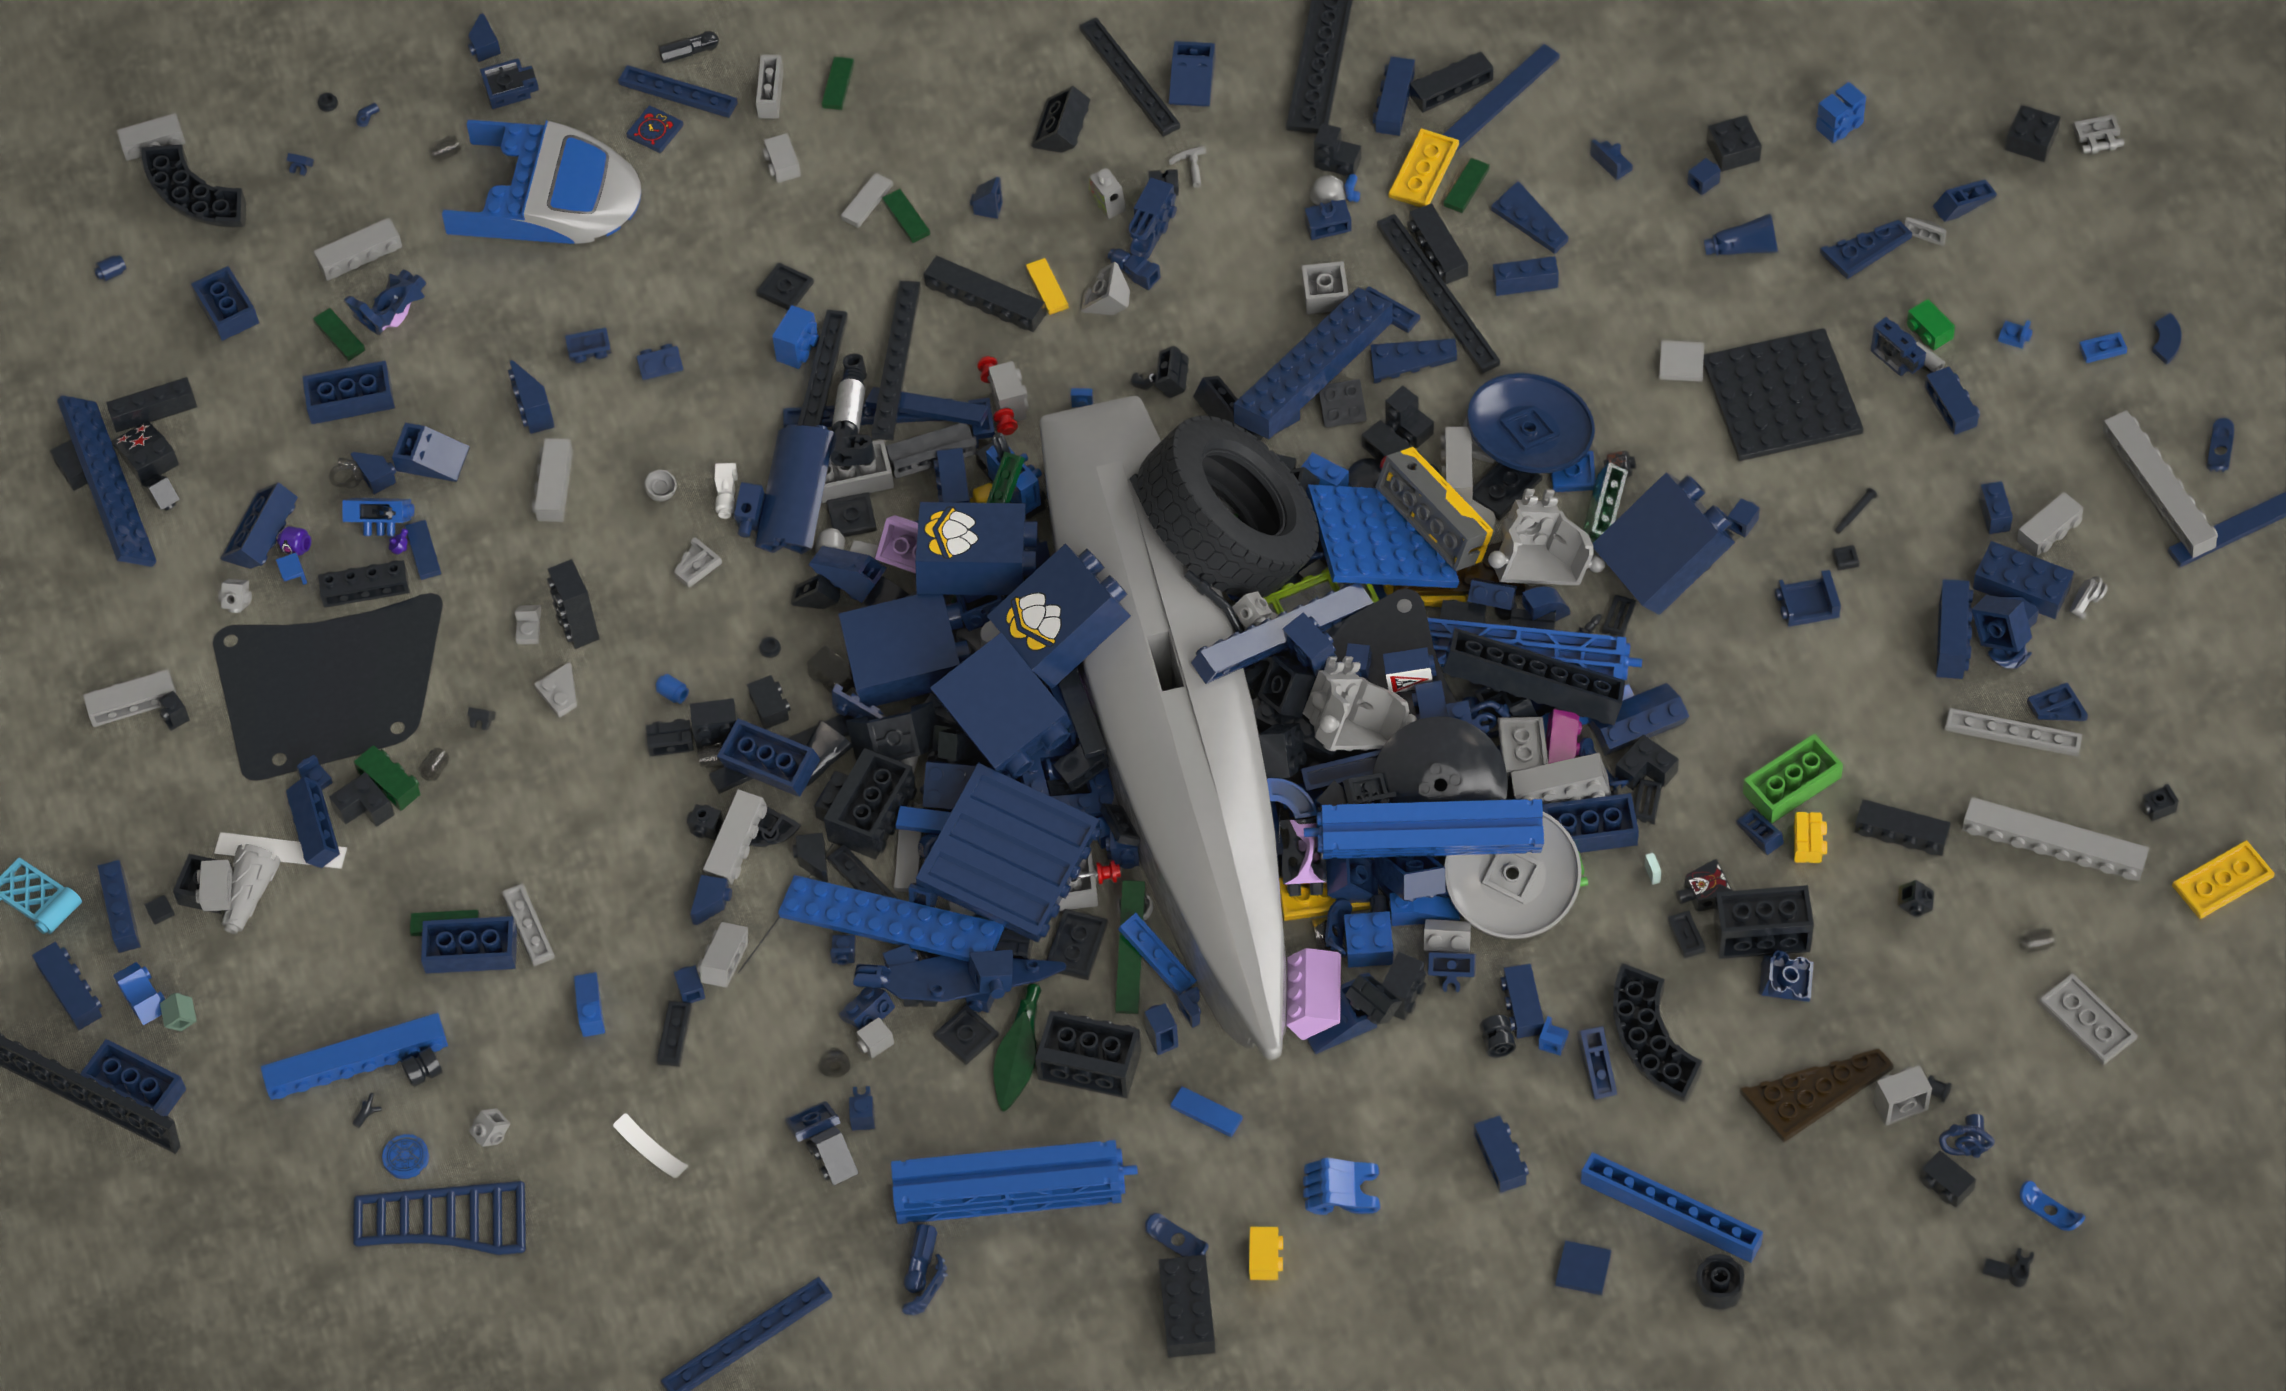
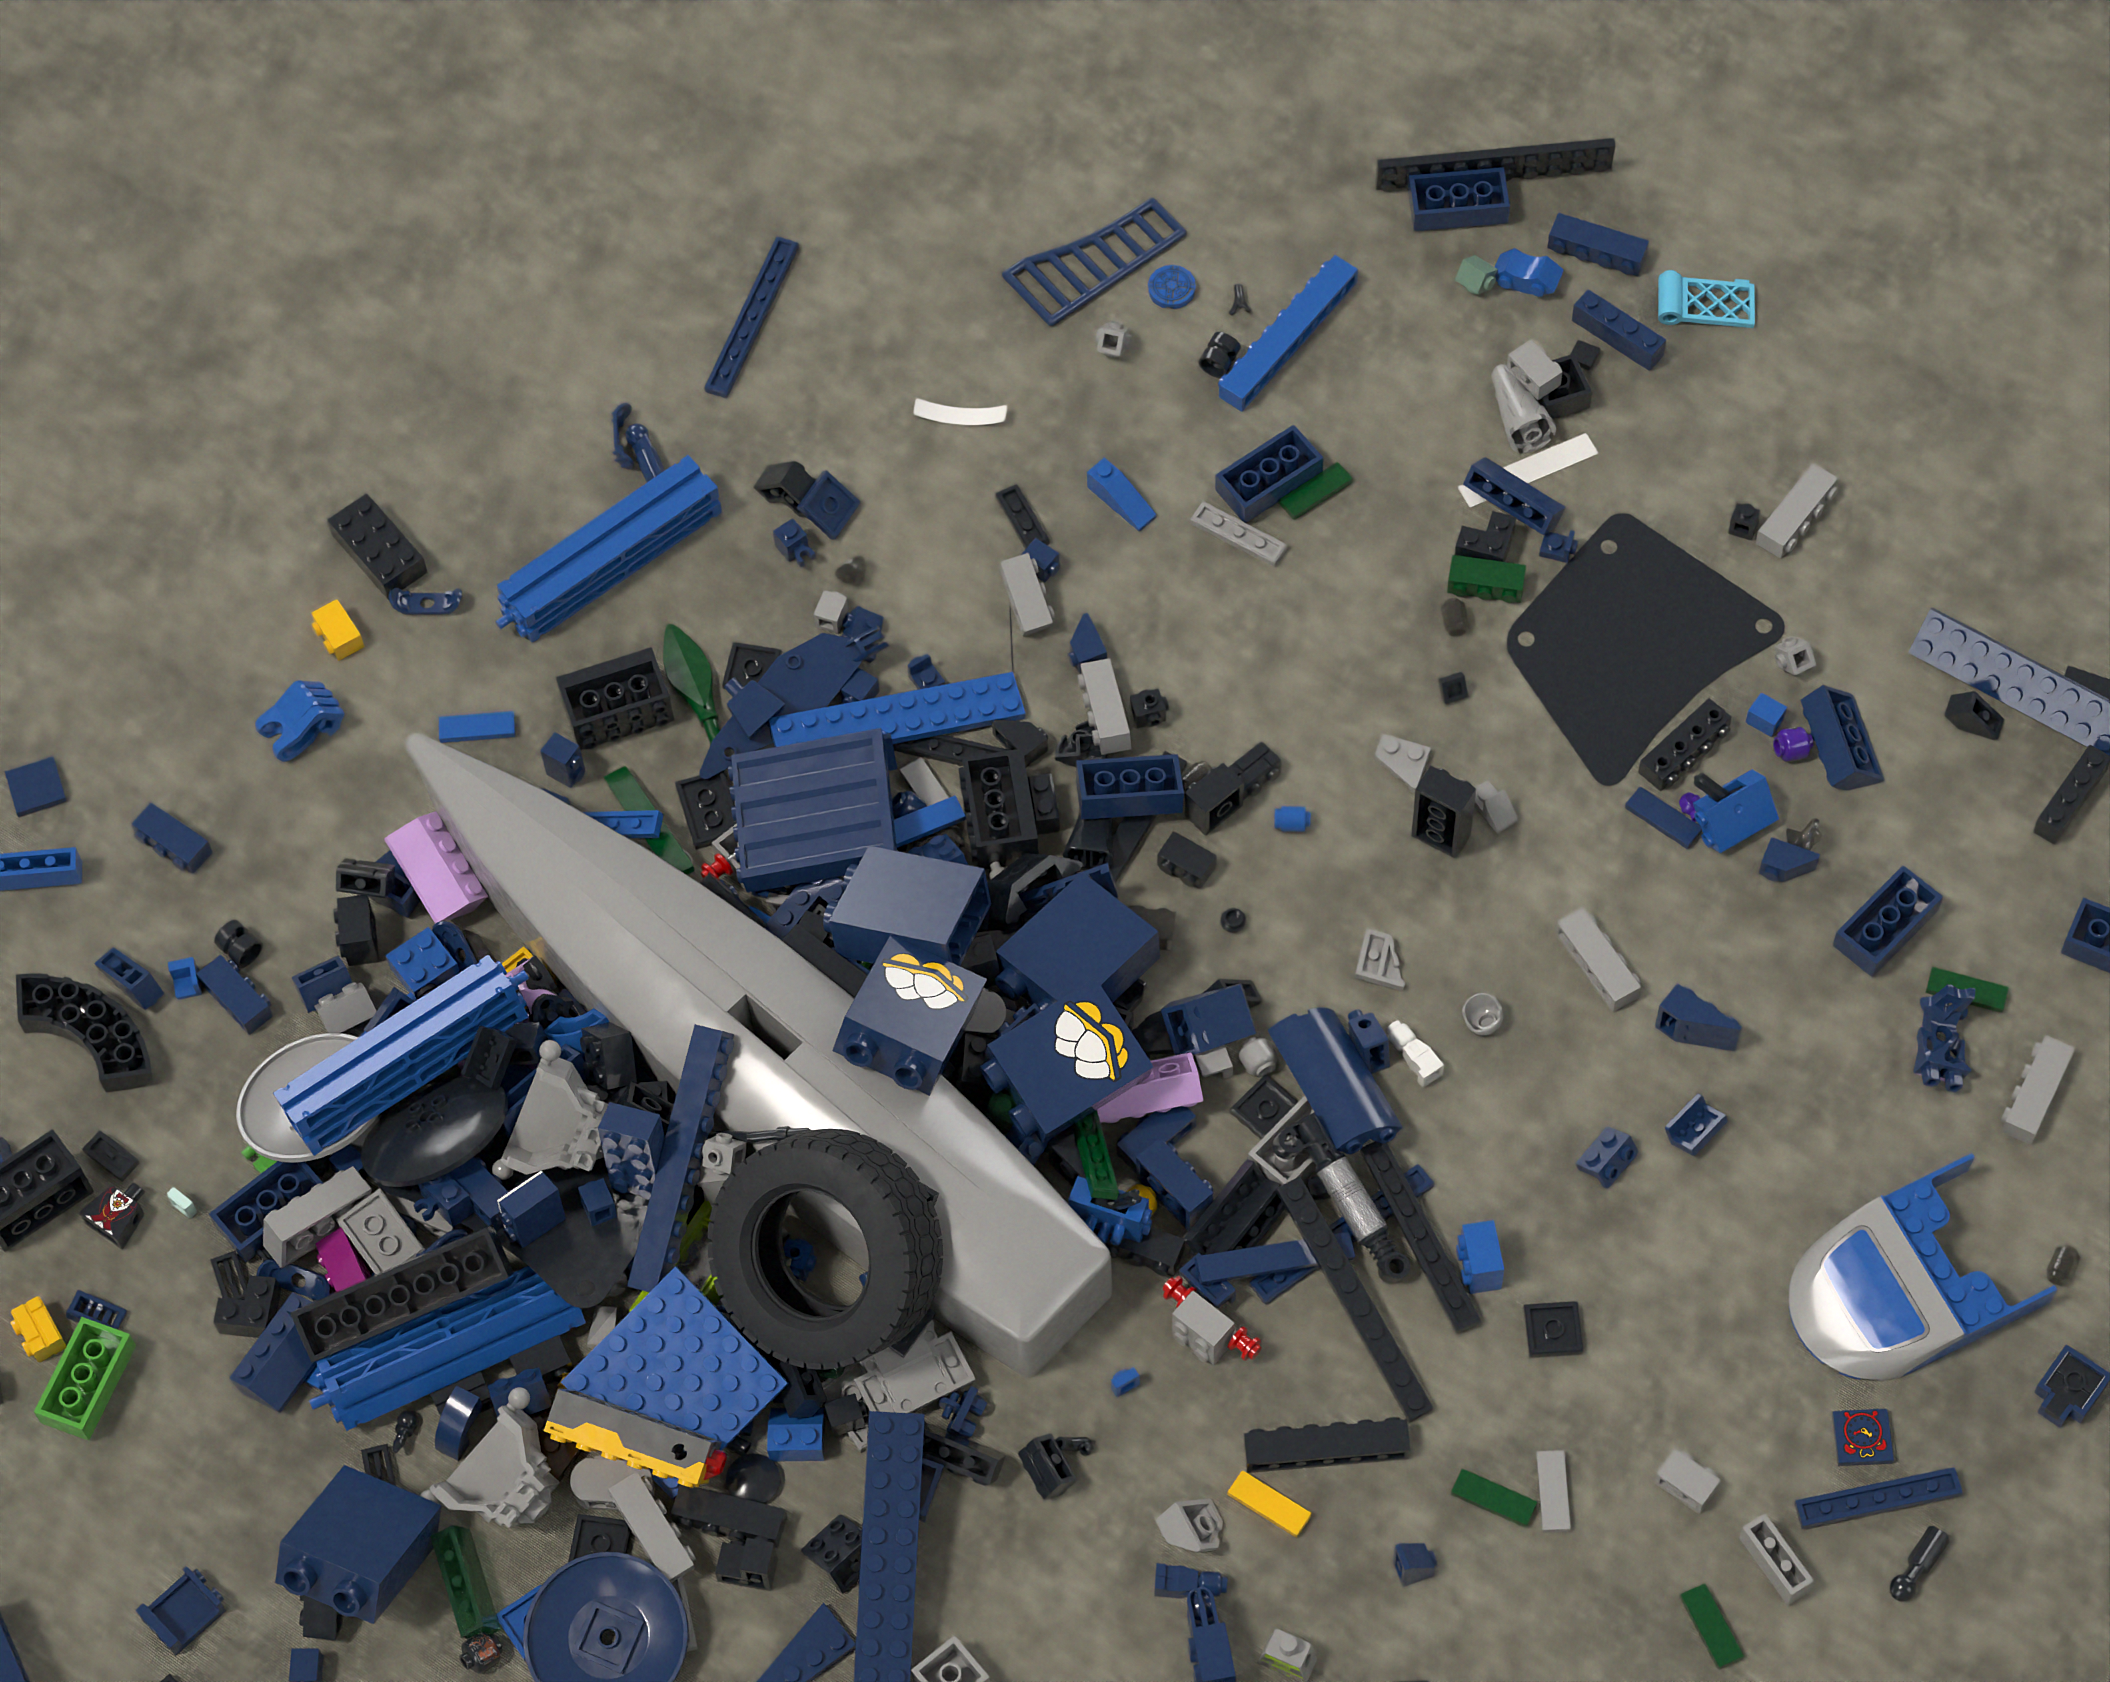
camera: 145 degrees right, 5 degrees up
(146, 452) = (2033, 748): black slope -> none
(429, 453) = (1745, 909): slope -> none

